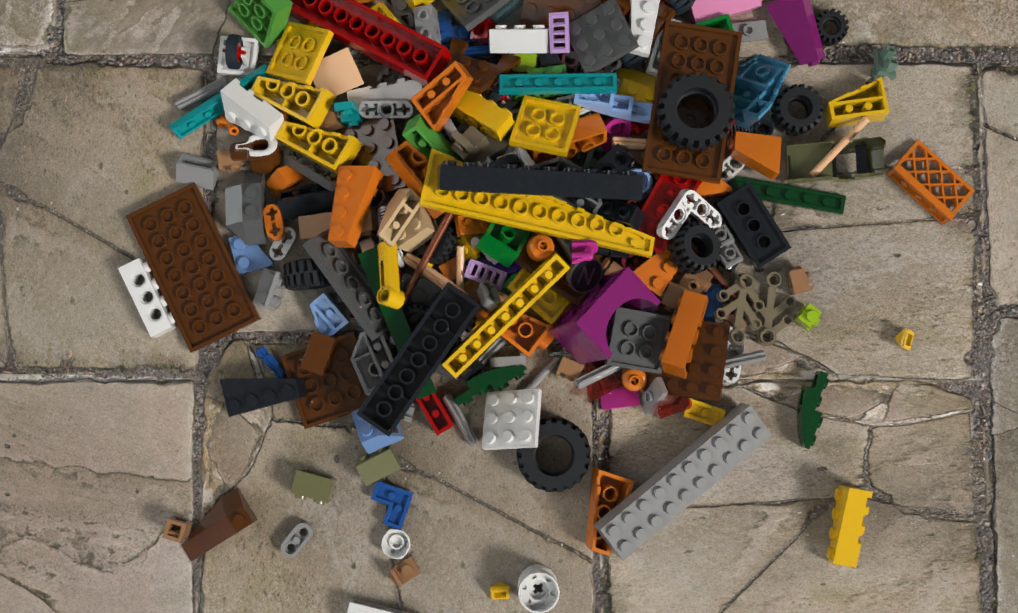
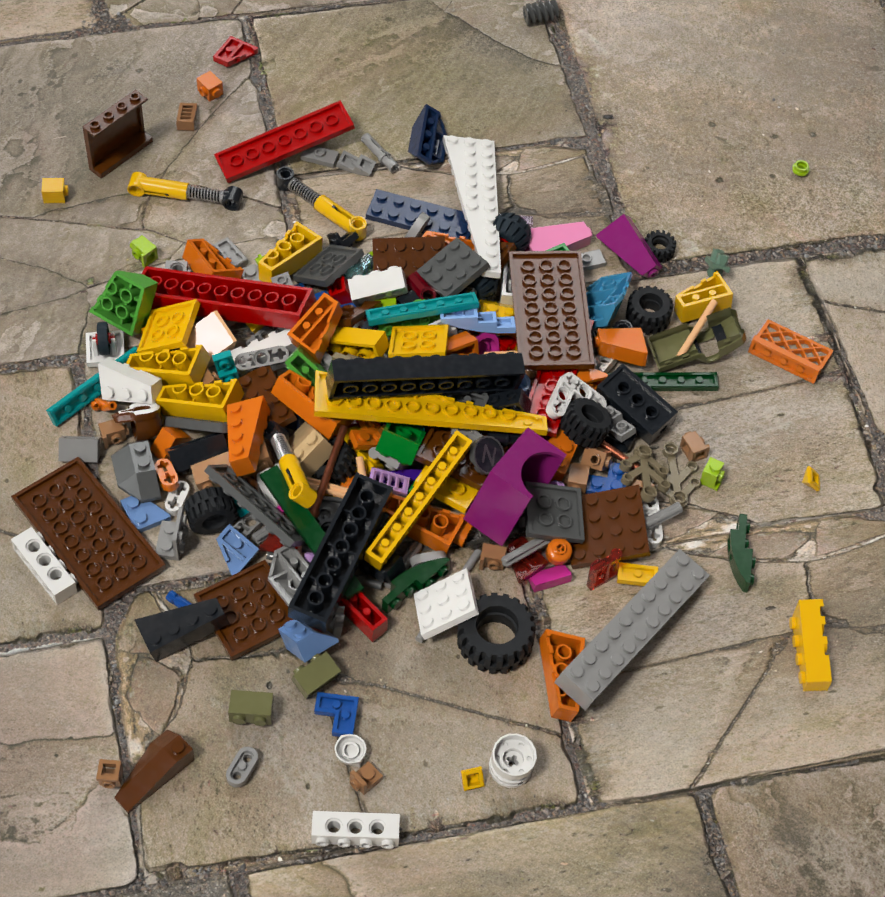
camera: 20 degrees left, 30 degrees down
(201, 94) = (69, 386): light grey axle -> none
(318, 353) = (233, 579): reddish brown brick -> none
(398, 215) = (295, 431): tan slope -> none
(460, 419) = (395, 627): light grey axle -> none
(488, 295) = (399, 491): light grey beam -> none
(540, 254) = (438, 436): orange head -> none
(563, 49) = (417, 284): lavender slope -> none
(583, 250) = (481, 430): dark pink piece -> none
(653, 396) = (582, 561): light grey plate -> none
(683, 333) = (596, 499): orange wedge -> none
(702, 88) = (556, 290): black tyre -> none

